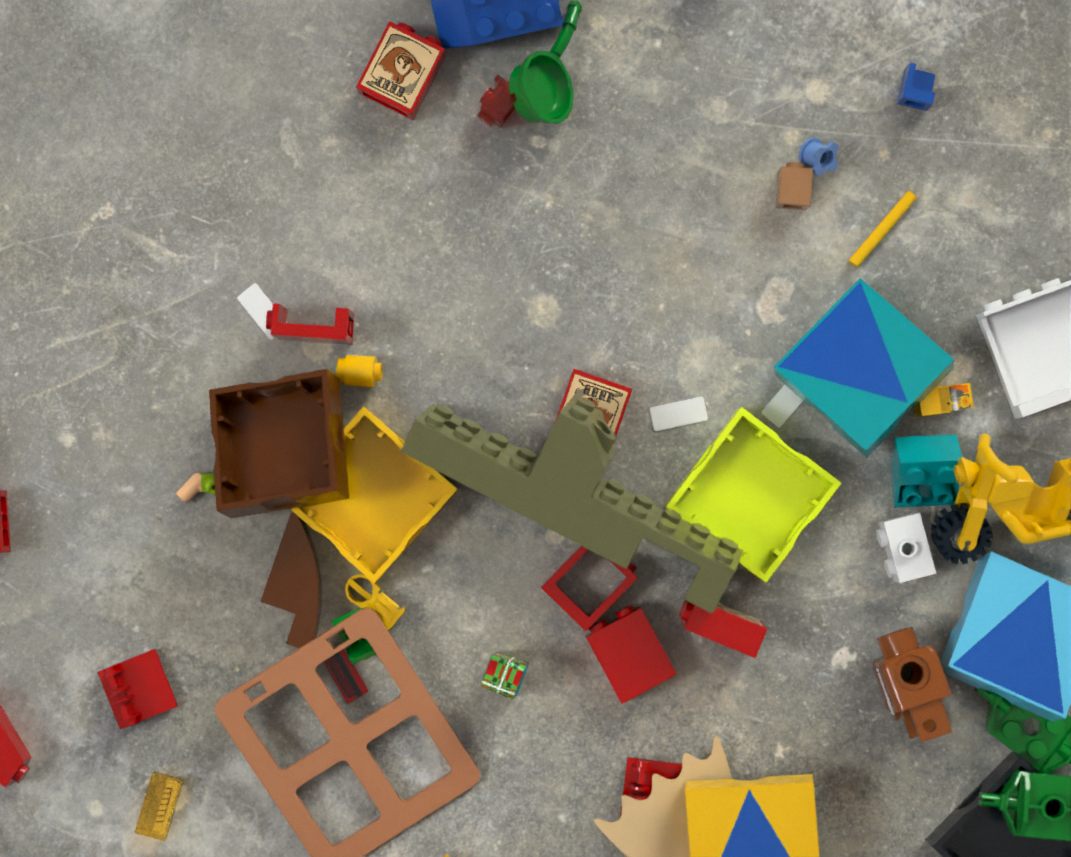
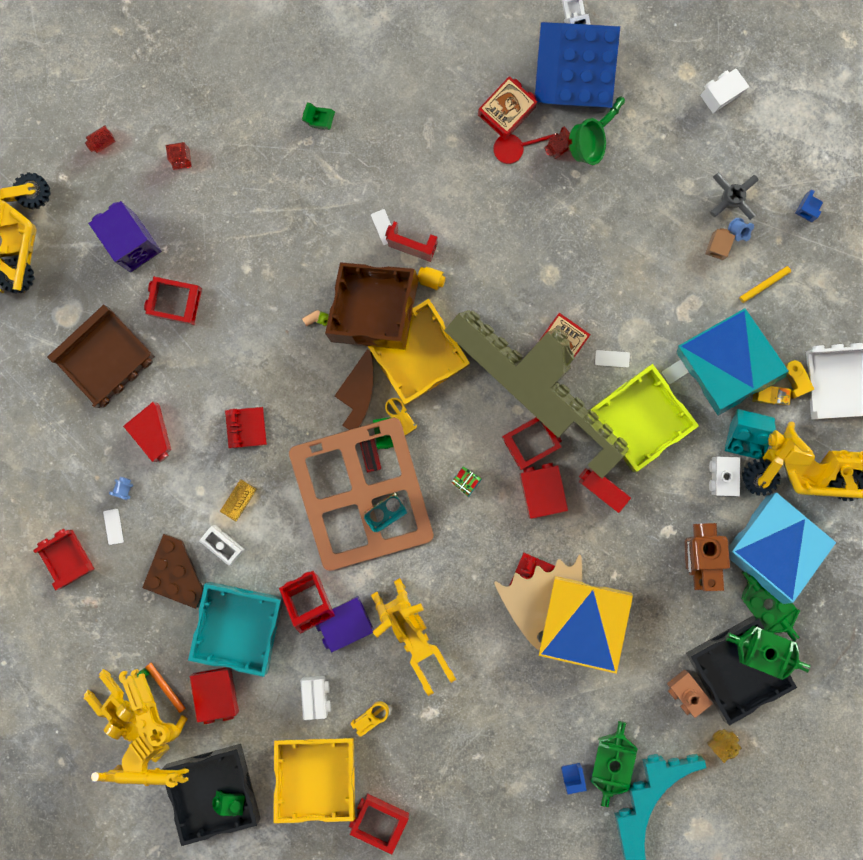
camera: 15 degrees right, 0 degrees up
(109, 169) = (318, 117): none -> green bracket
(399, 773) = (395, 515): none -> teal piece
(428, 131) = (512, 148): none -> red piece
(799, 96) = (739, 191): none -> dark grey bar
(975, 362) = (798, 379): none -> yellow leg

